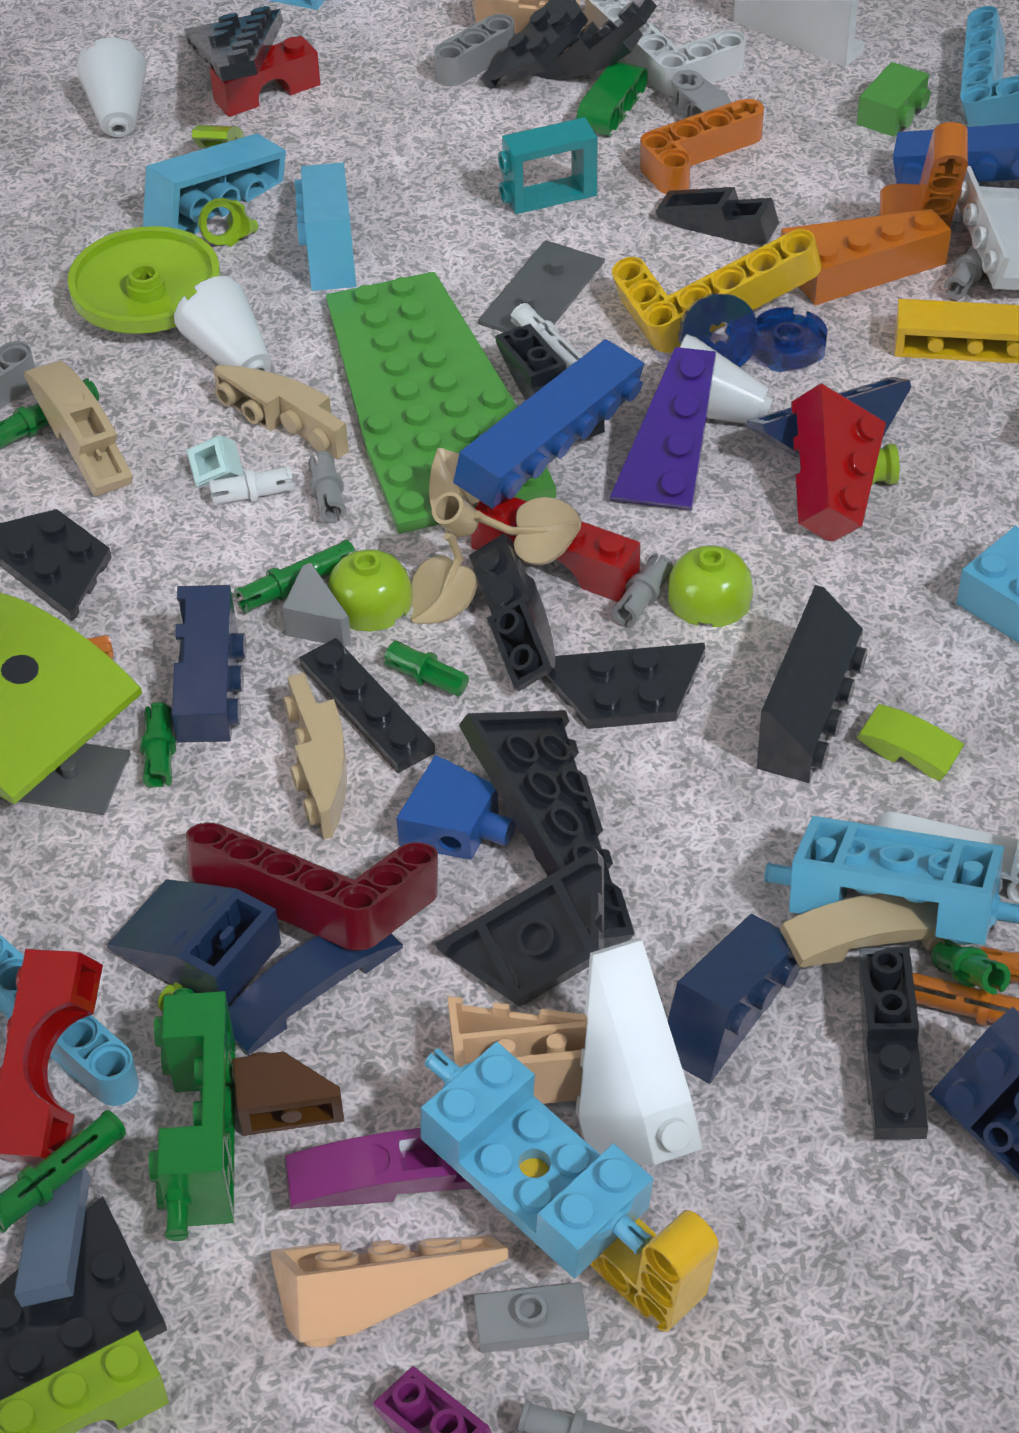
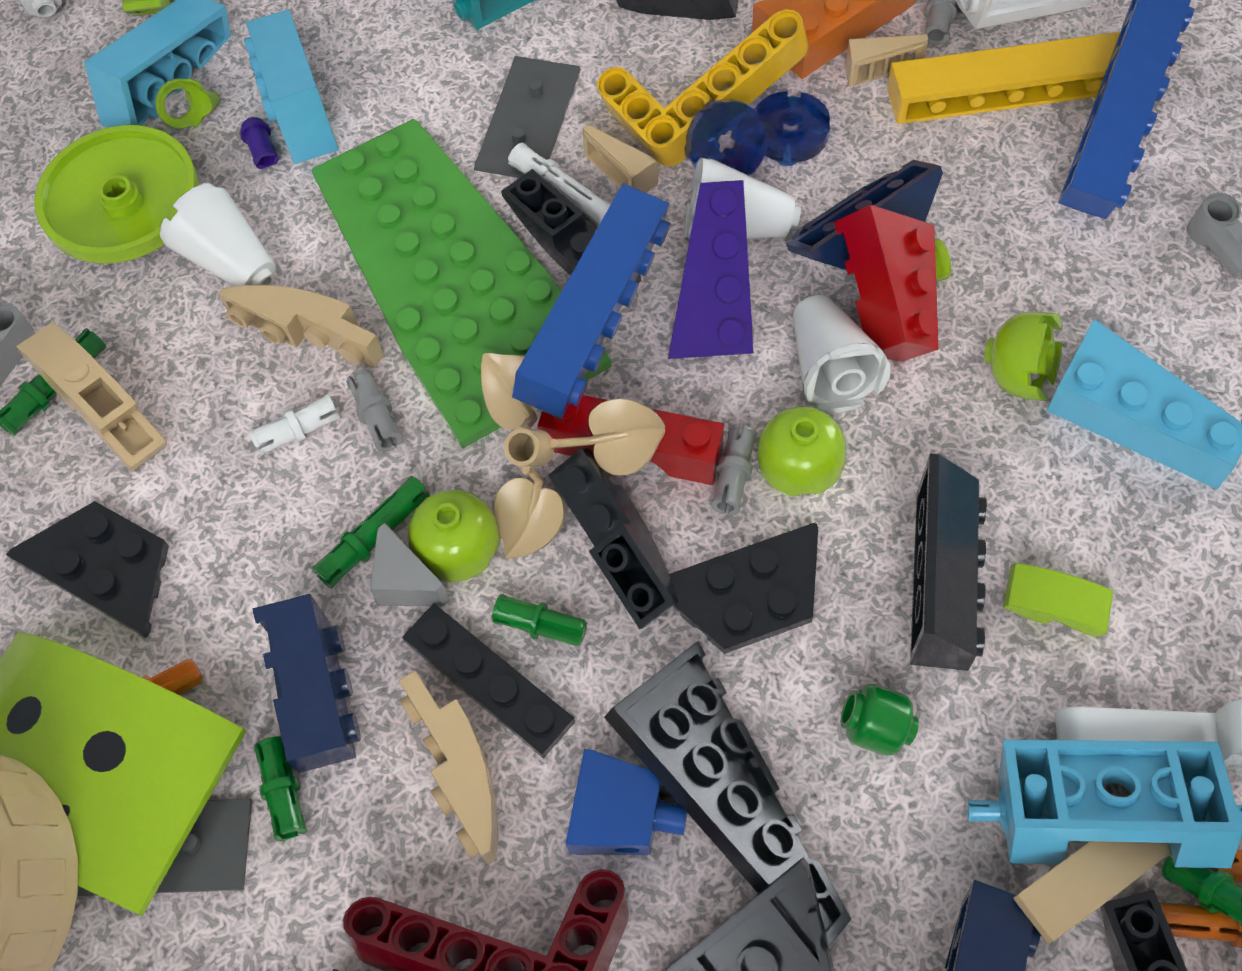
camera: 10 degrees left, 15 degrees up
(214, 460) = (249, 403): light aqua slope -> none
(284, 260) = (256, 134): none -> dark purple pin
(606, 324) = (619, 160): none -> tan slope
(710, 793) = (879, 719): none -> green head
(765, 521) = (836, 357): none -> white cone
(877, 289) = (872, 57): none -> tan slope
(945, 538) = (1025, 347): none -> lime cylinder

